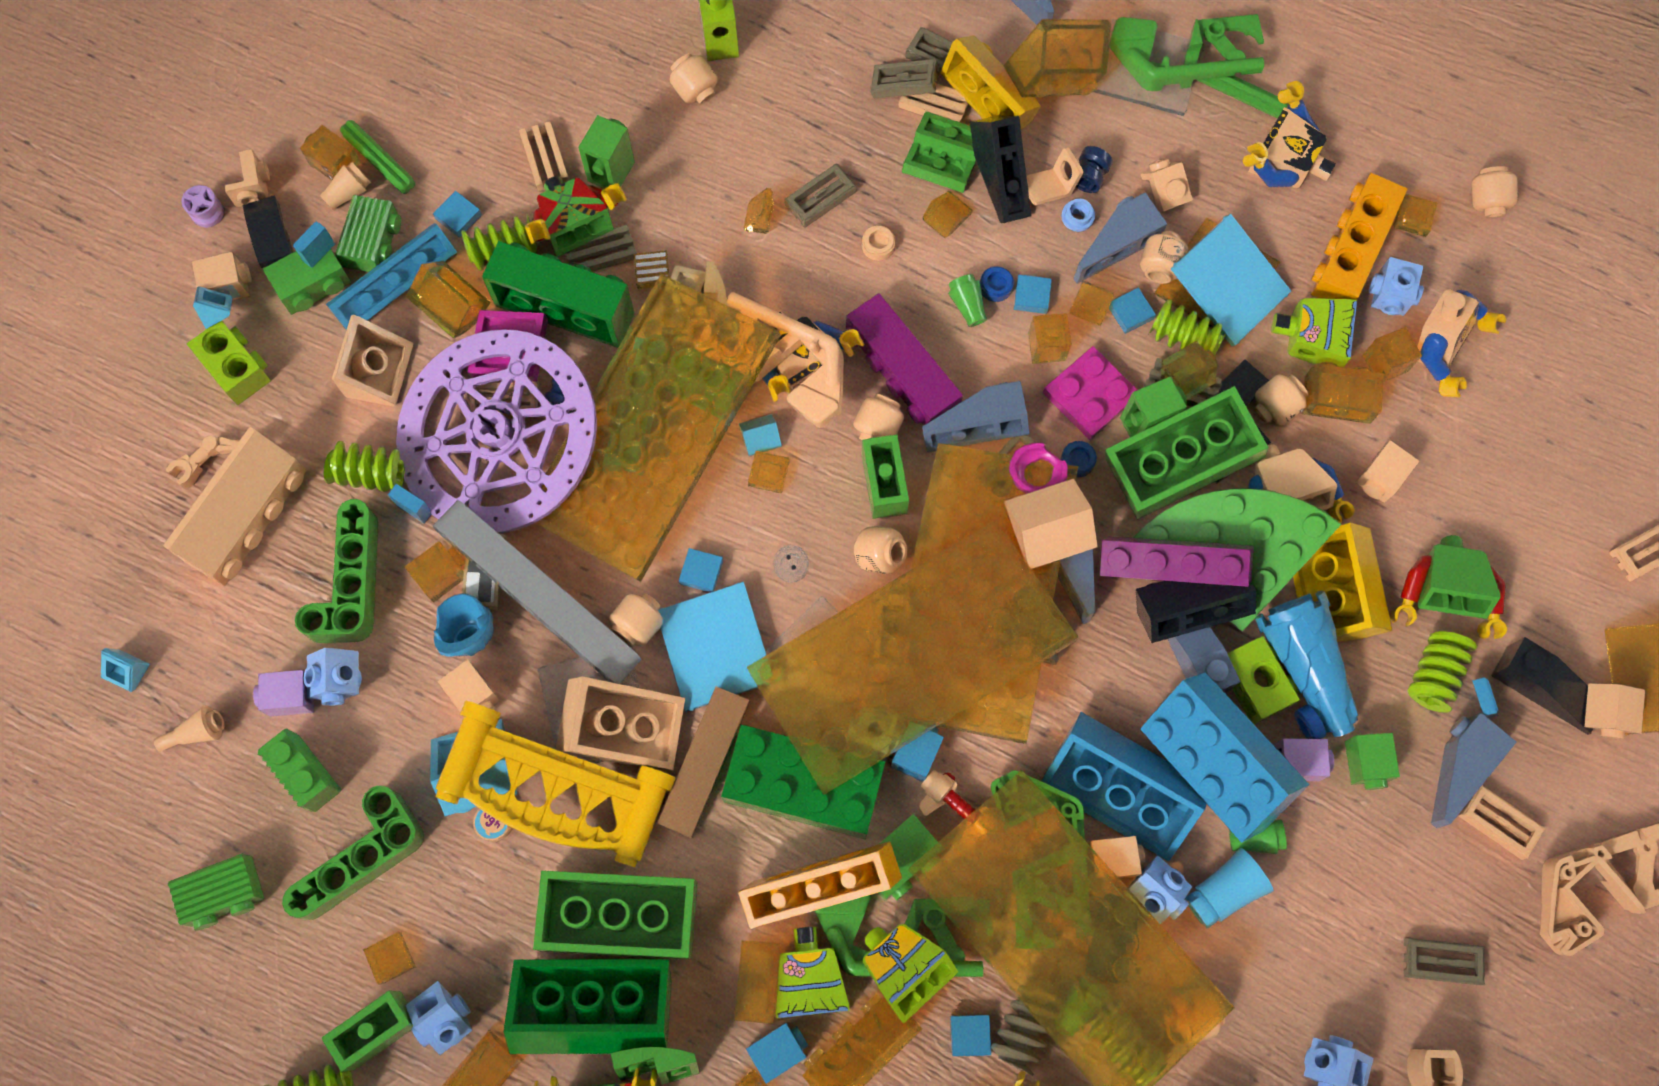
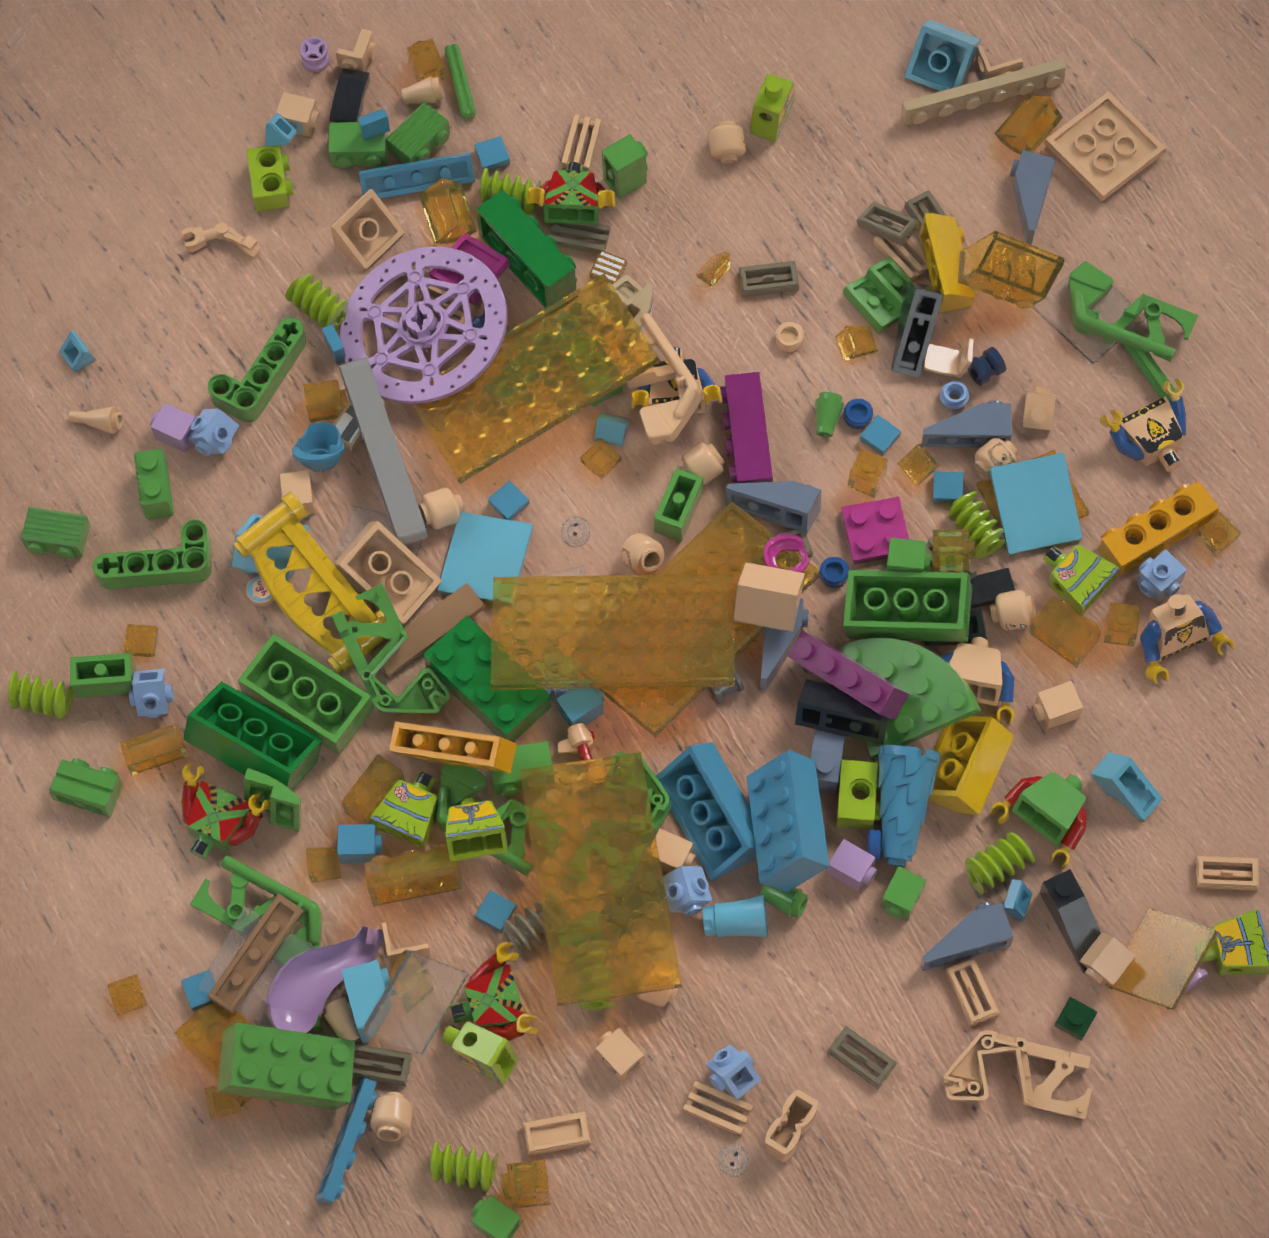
camera: 35 degrees right, 5 degrees down
(236, 507) = (214, 282): light nougat slope -> none
(743, 834) = (425, 691): none -> bright green piece
(1504, 514) = (1126, 783): none -> medium azure arch
(1617, 788) = (1075, 1018): none -> dark green plate

